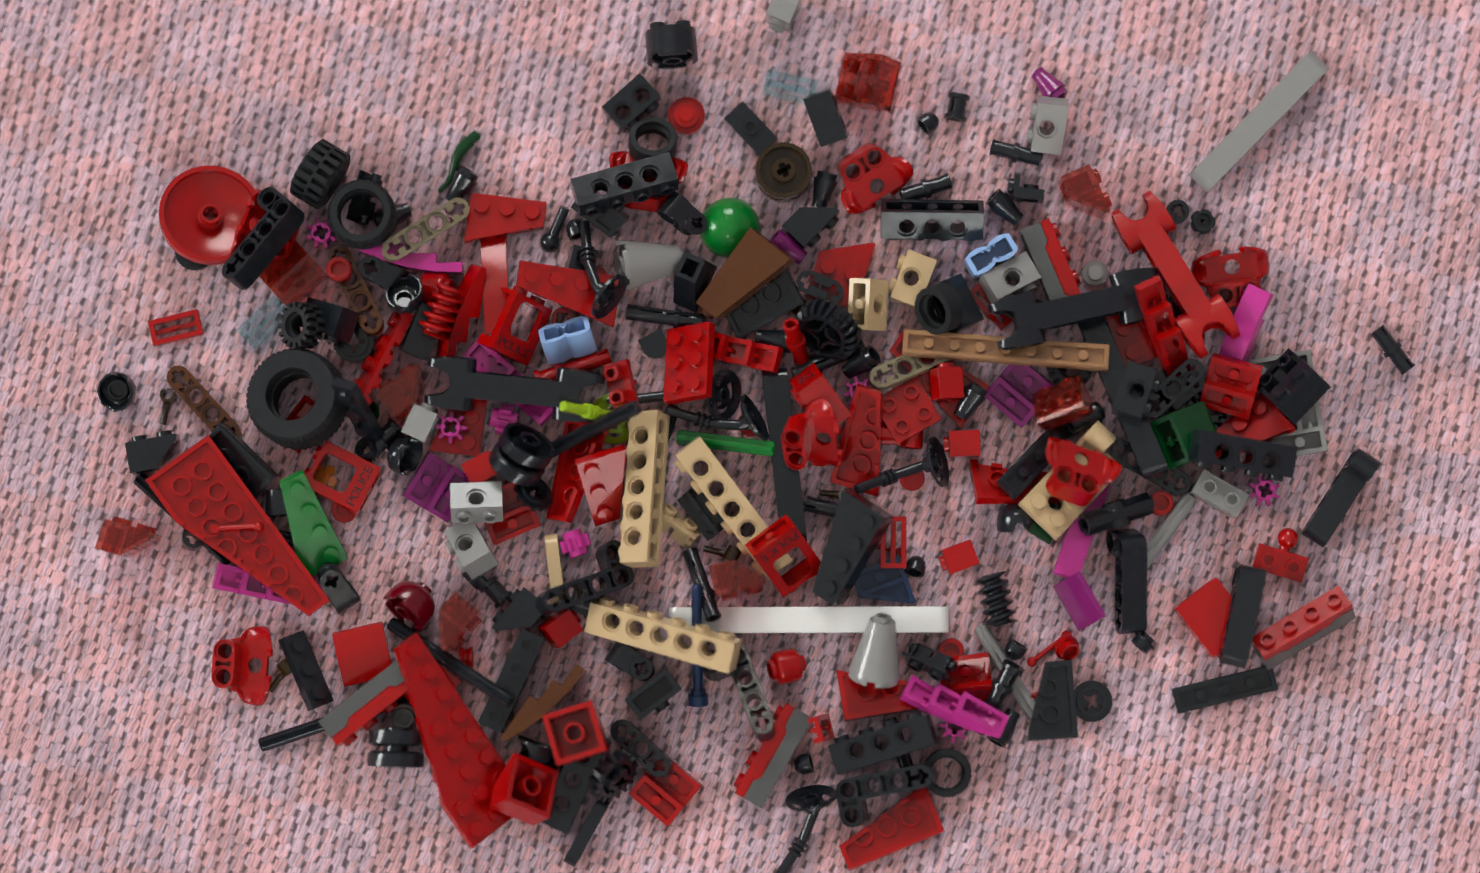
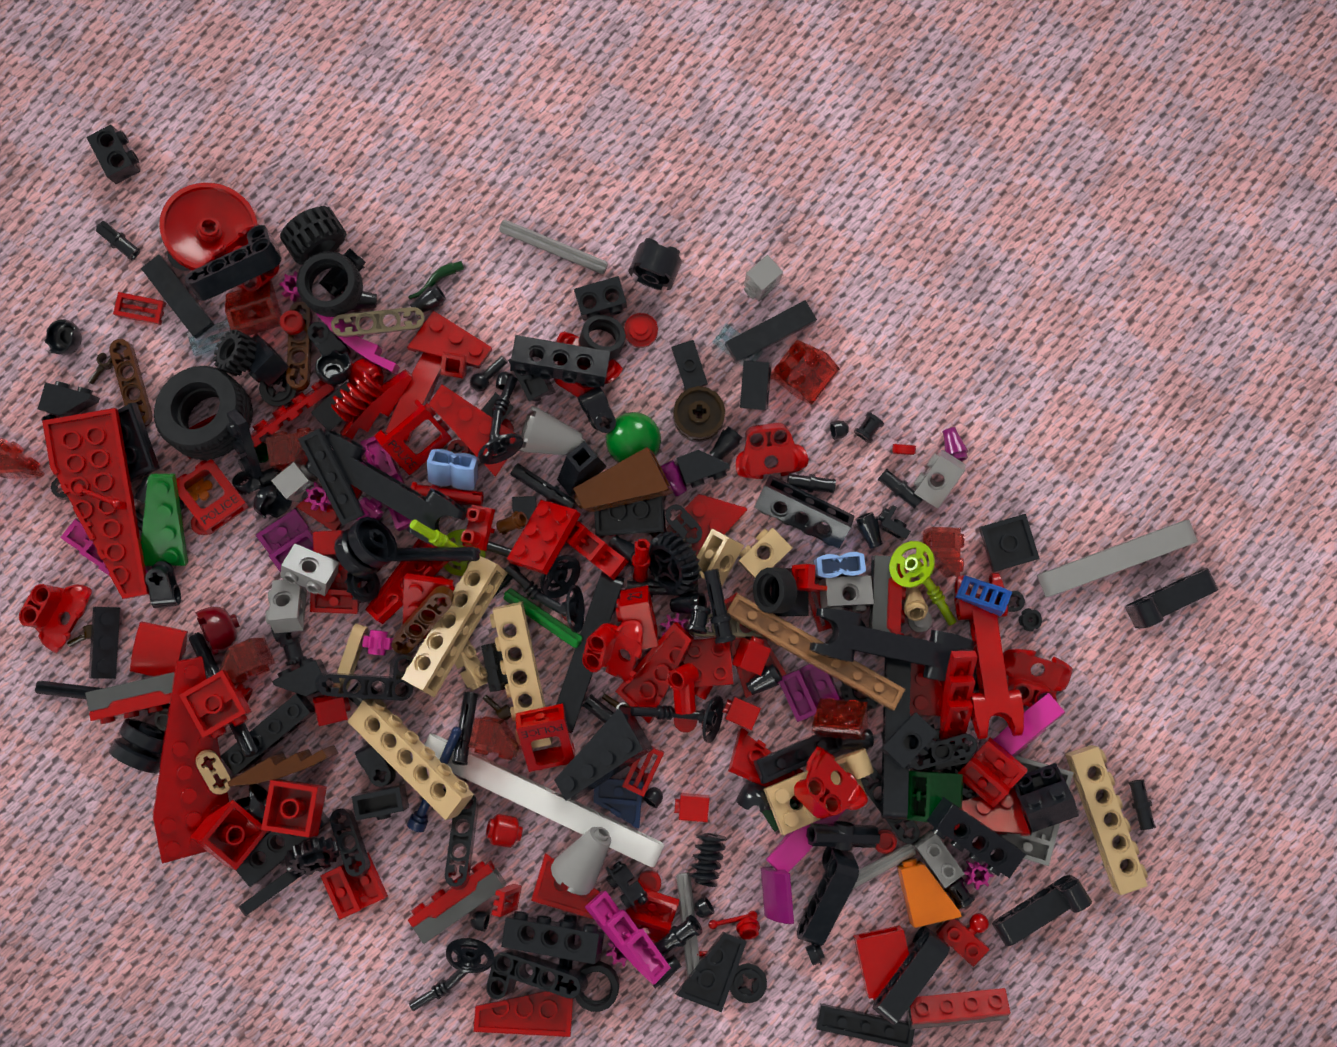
camera: 20 degrees right, 0 degrees up
(73, 190) = (111, 156): none -> black brick
(121, 270) = (117, 240): none -> black axle
(209, 297) = (177, 296): none -> black tile
(454, 669) = (215, 705): none -> red plate
(458, 400) = (331, 476): none -> black tile
(476, 742) = (208, 775): none -> tan beam
(518, 237) = (453, 365): none -> red slope
(559, 73) = (553, 246): none -> light grey axle
(611, 498) = (422, 620): none -> reddish brown beam
(654, 360) = (515, 521): none -> reddish brown pin
(815, 57) = (770, 331): none -> black tile
(878, 371) = (698, 619): none -> black bush
(892, 439) = (682, 682): none -> red piece
(899, 359) = (720, 617): none -> black pin
(963, 283) = (805, 578): none -> red panel
(1001, 112) = (904, 449): none -> red tile
(1072, 222) = (917, 569): none -> lime dish
(1082, 259) = (915, 604): none -> tan cone
(1146, 156) = (1009, 543): none -> black plate
(1151, 209) = (986, 587): none -> blue slope
(1221, 535) = (924, 896): none -> orange slope
(1251, 510) = (961, 900): none -> black bush
(1313, 338) = (1134, 875): none -> tan brick
(1329, 135) = (1154, 606): none -> black beam

